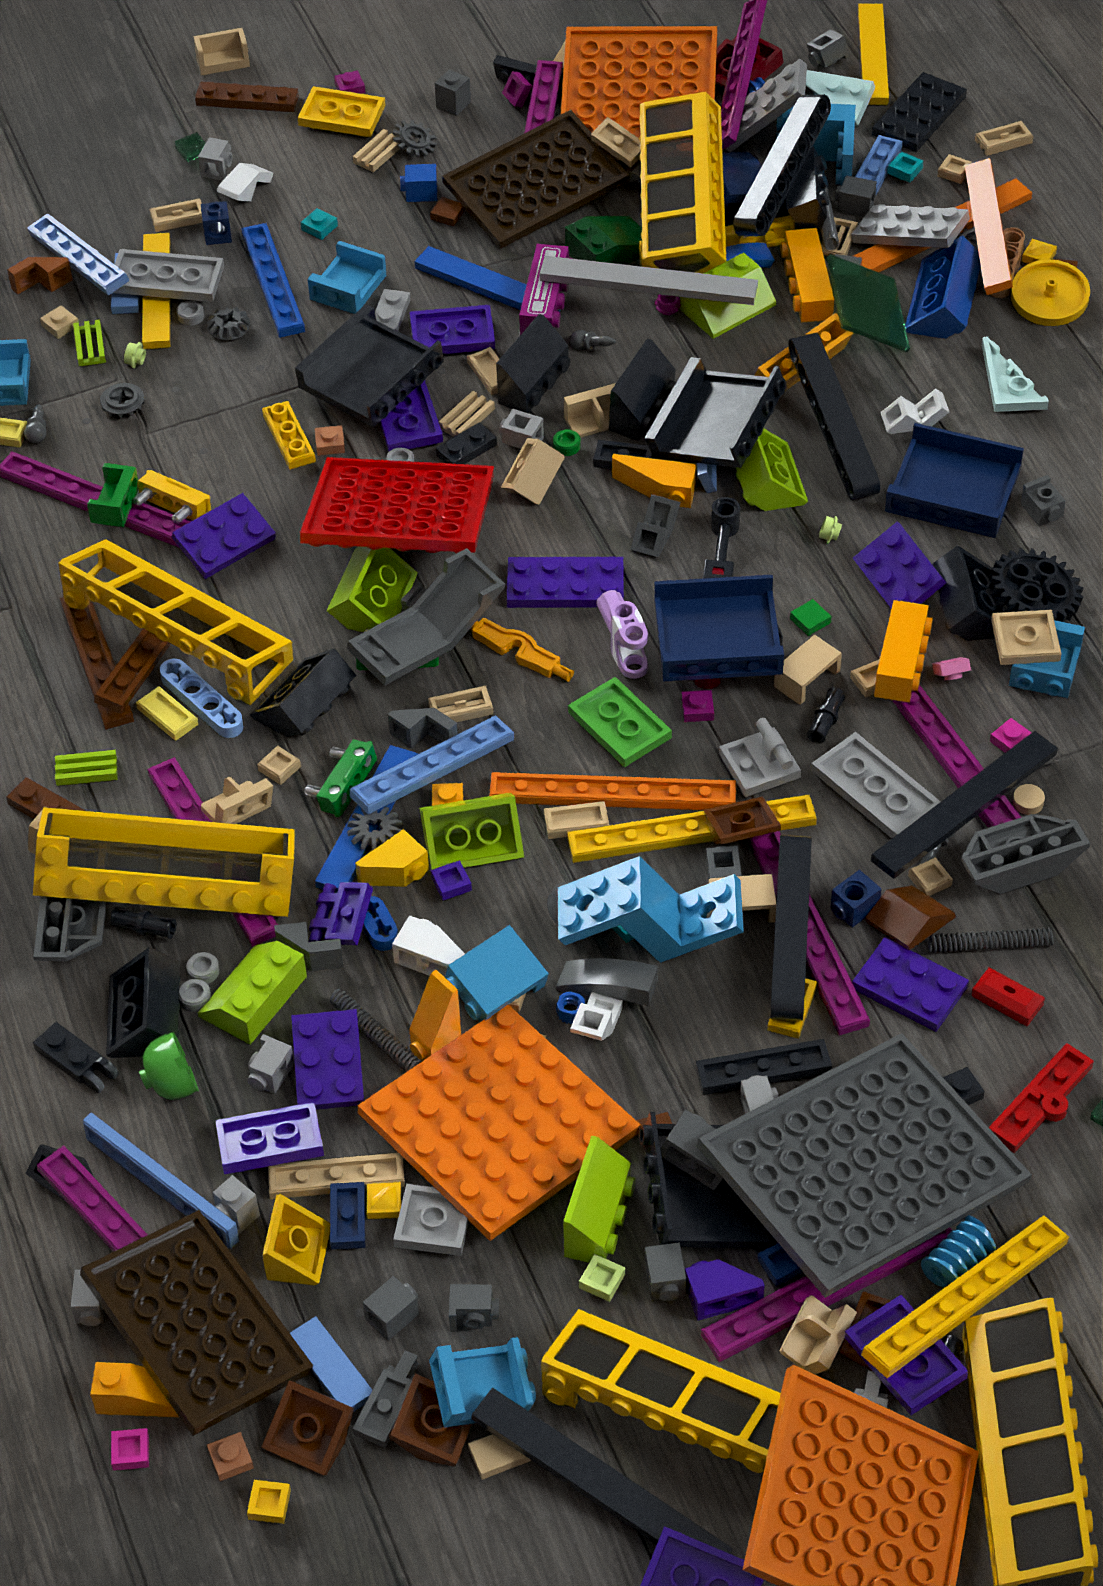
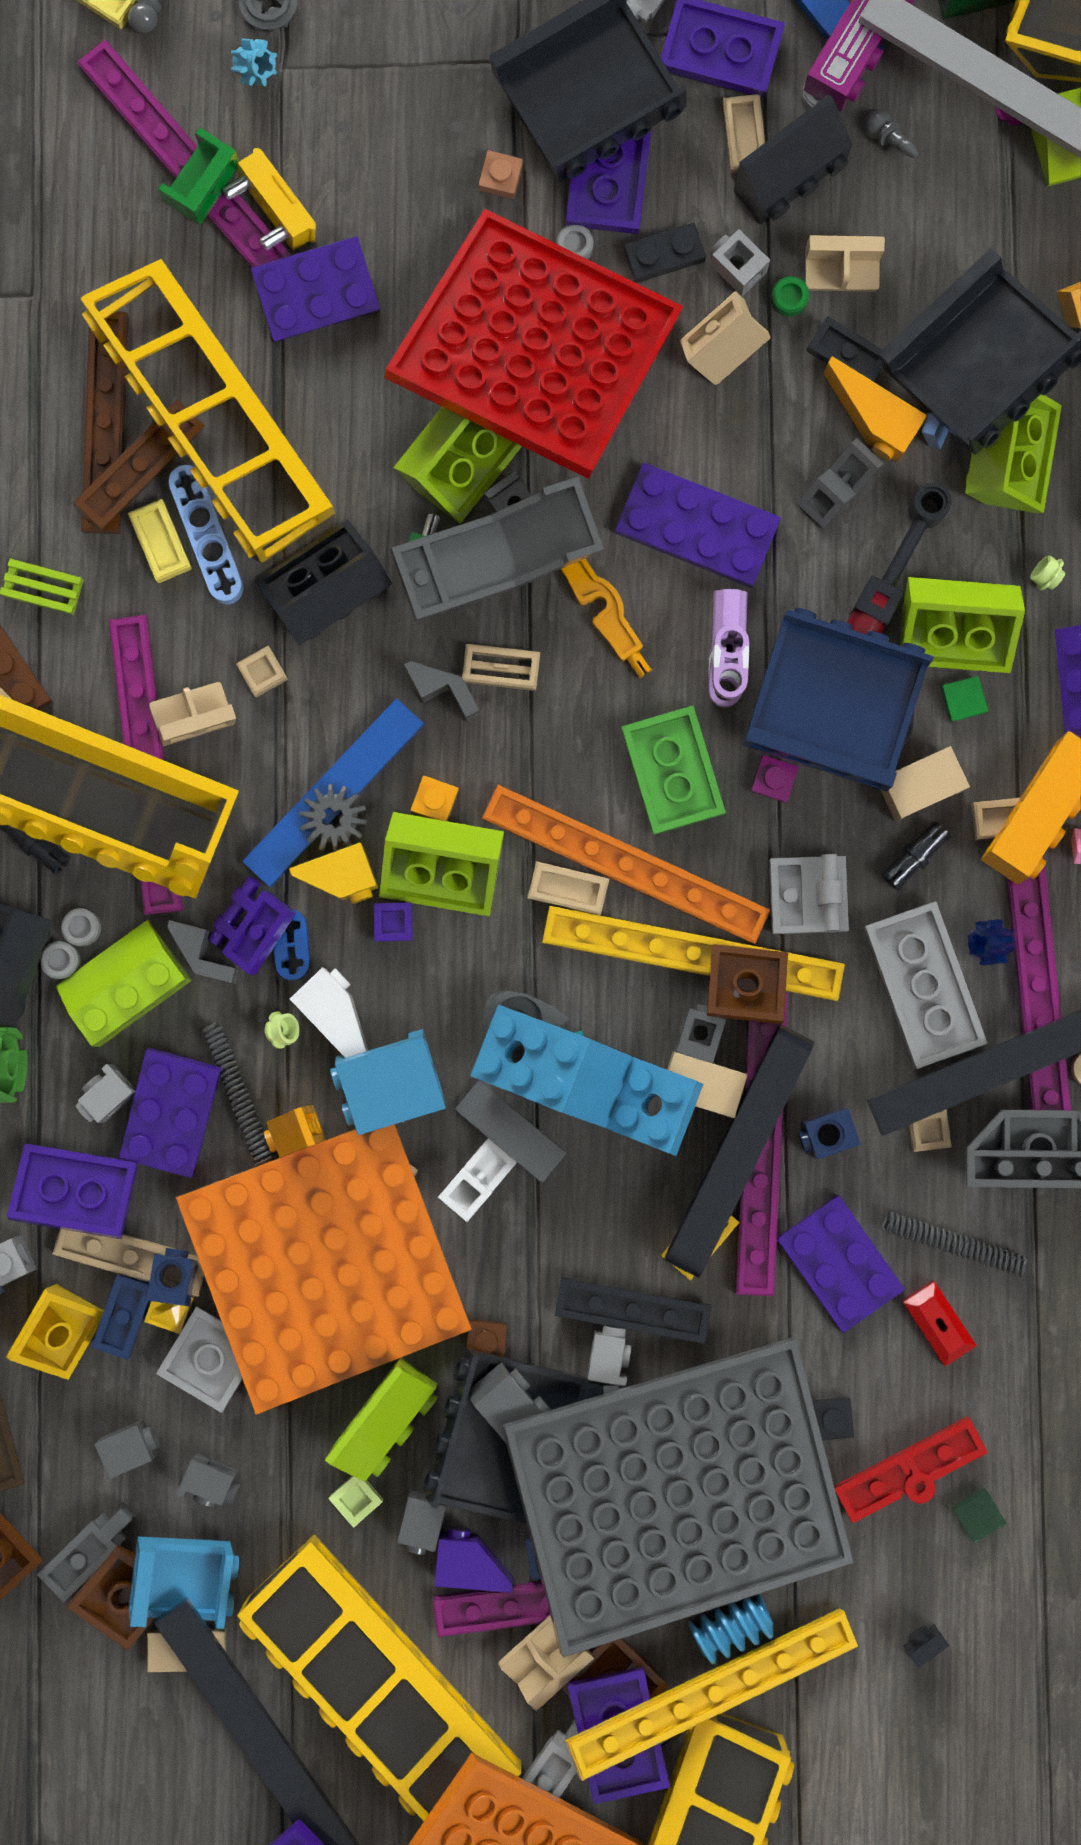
camera: 20 degrees right, 35 degrees up
(126, 429) = (253, 62): none -> medium azure gear
(288, 435) = (454, 162): yellow tile -> none
(331, 1365) = (45, 1484): medium blue tile -> none
(349, 772) = (329, 725): green piece -> none
(379, 1162) = (177, 1295): none -> dark blue brick
(393, 976) = (281, 1029): none -> yellowish green plate
(431, 764) = (432, 751): medium blue tile -> none
(462, 414) = (711, 183): tan tile -> none
(565, 999) = (457, 1156): blue axle -> none
(641, 392) = (913, 264): black slope -> none
(797, 568) = (963, 623): none -> lime slope
(908, 916) = (880, 1179): reddish brown slope -> none
(909, 742) = (991, 942): none -> clear blue gear

